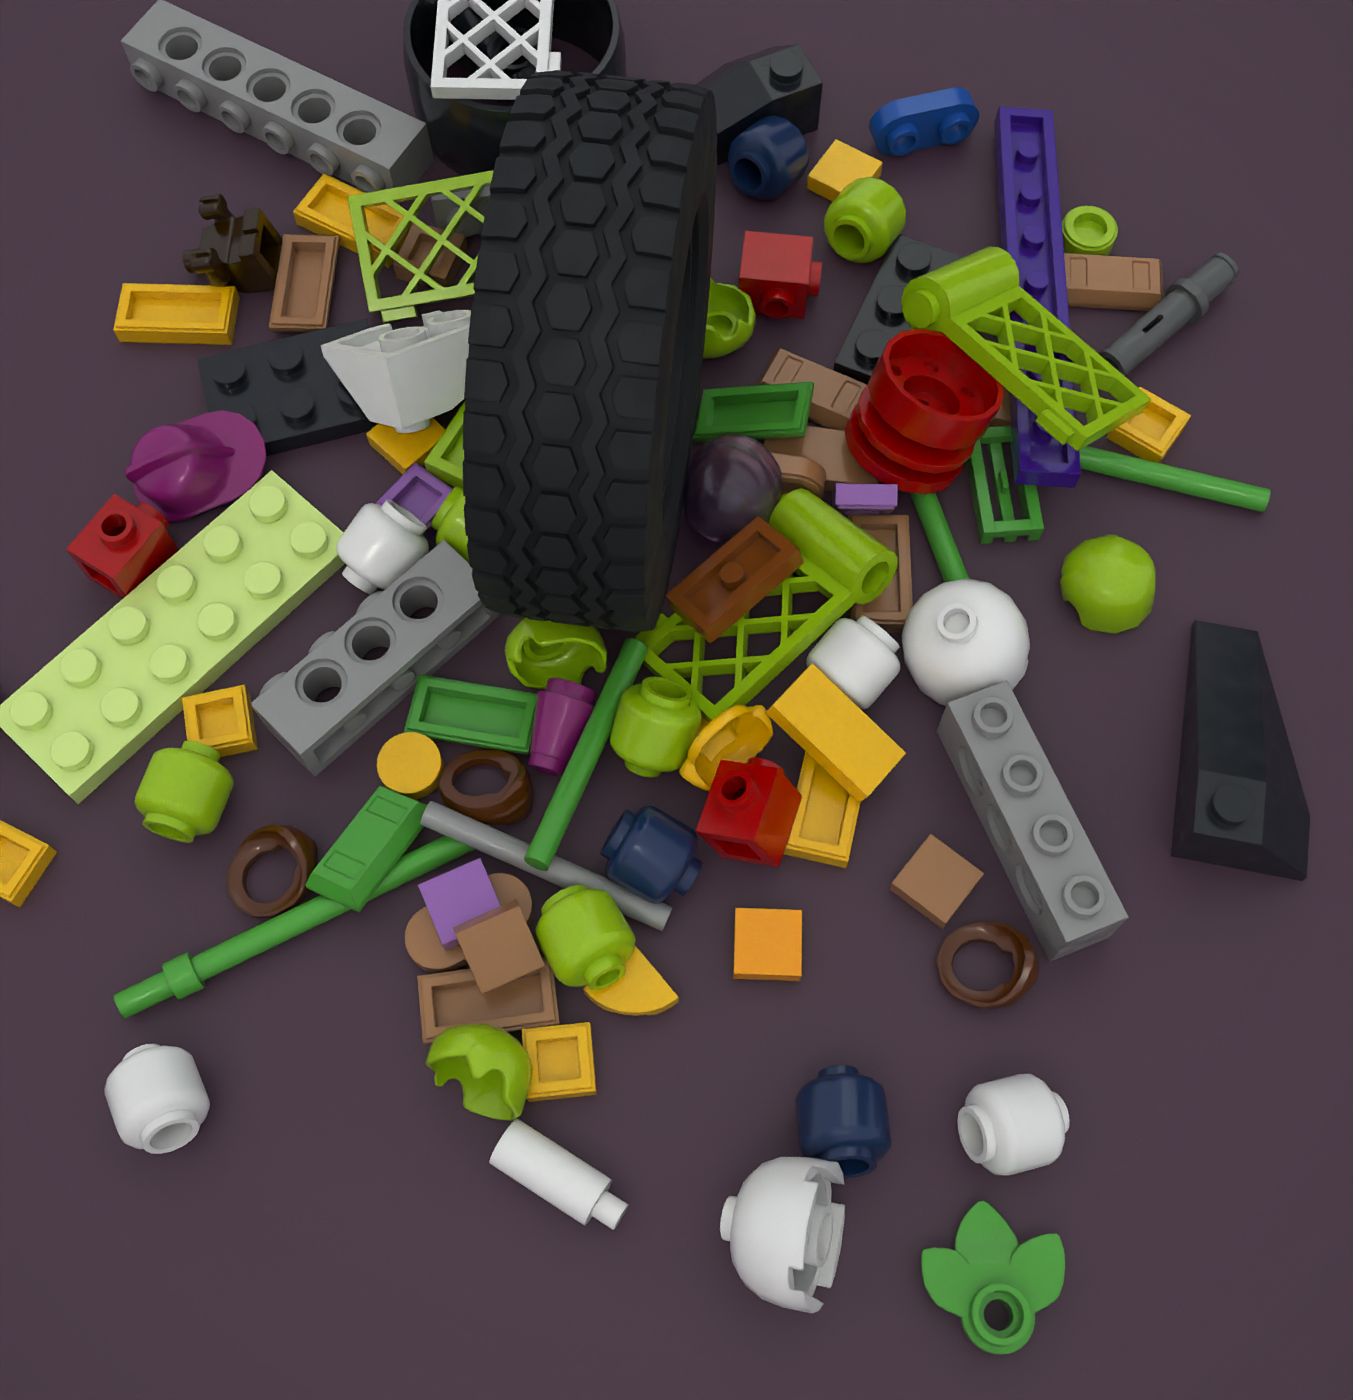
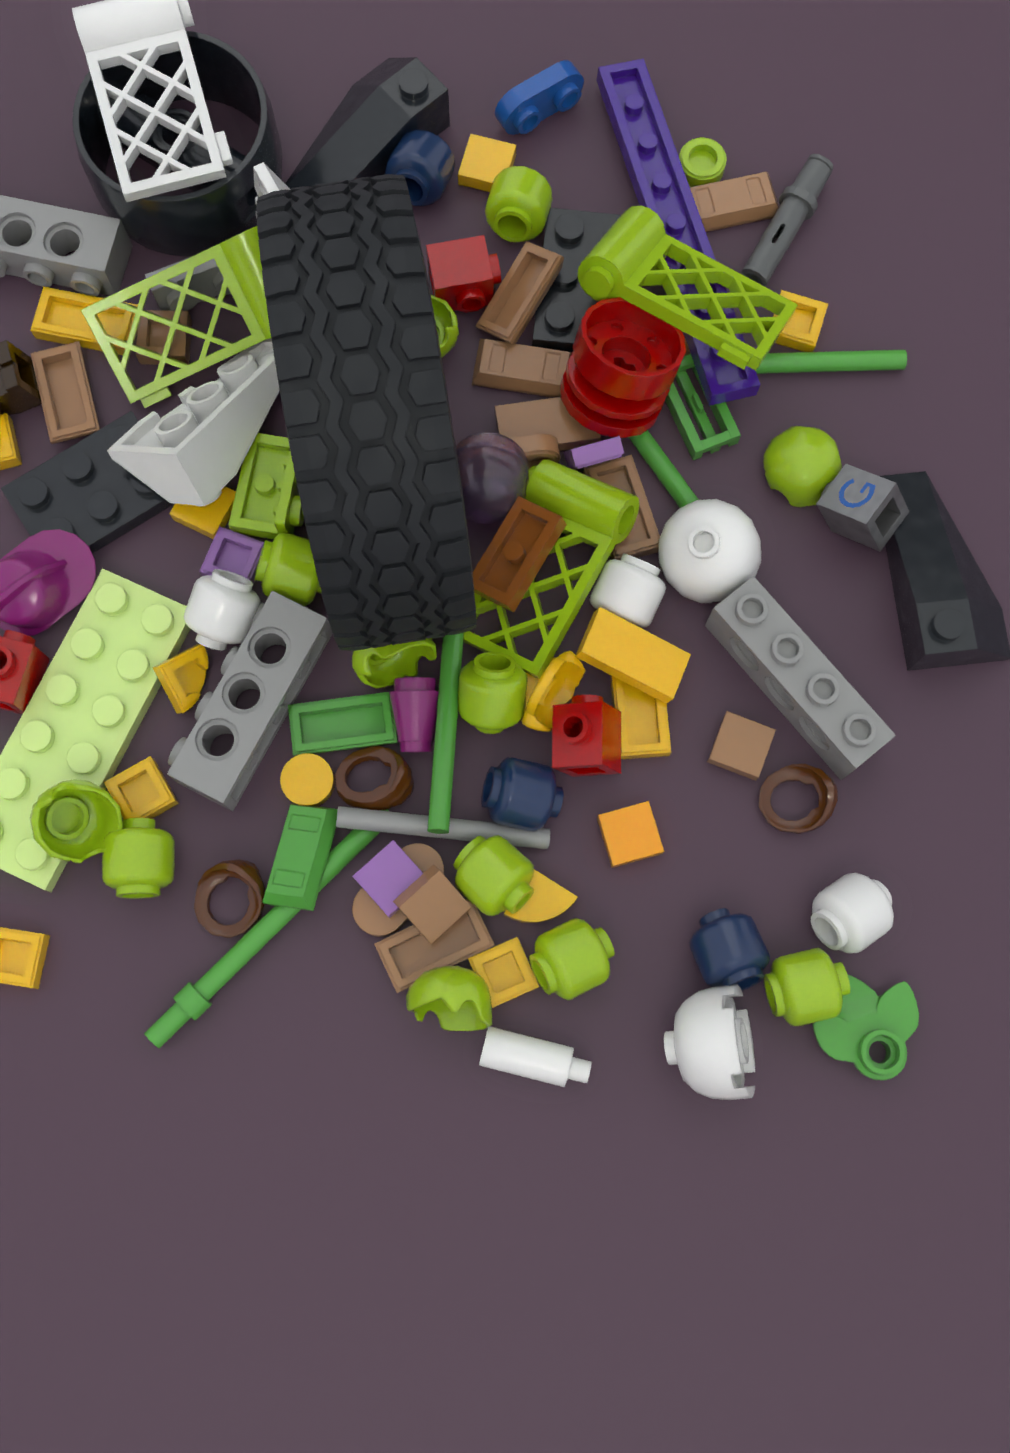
camera: 20 degrees left, 10 degrees up
(127, 721) = (74, 820): none -> lime hair
(157, 1098) = (210, 1100): white head -> none
(315, 609) = (184, 677): none -> yellow tile
(645, 1067) = (572, 959): none -> lime head
(755, 411) = (490, 401): bright green tile -> none
(836, 310) = (520, 293): none -> medium nougat tile
(926, 1197) = (806, 987): none -> lime head
(1166, 644) = (863, 507): none -> flat silver brick

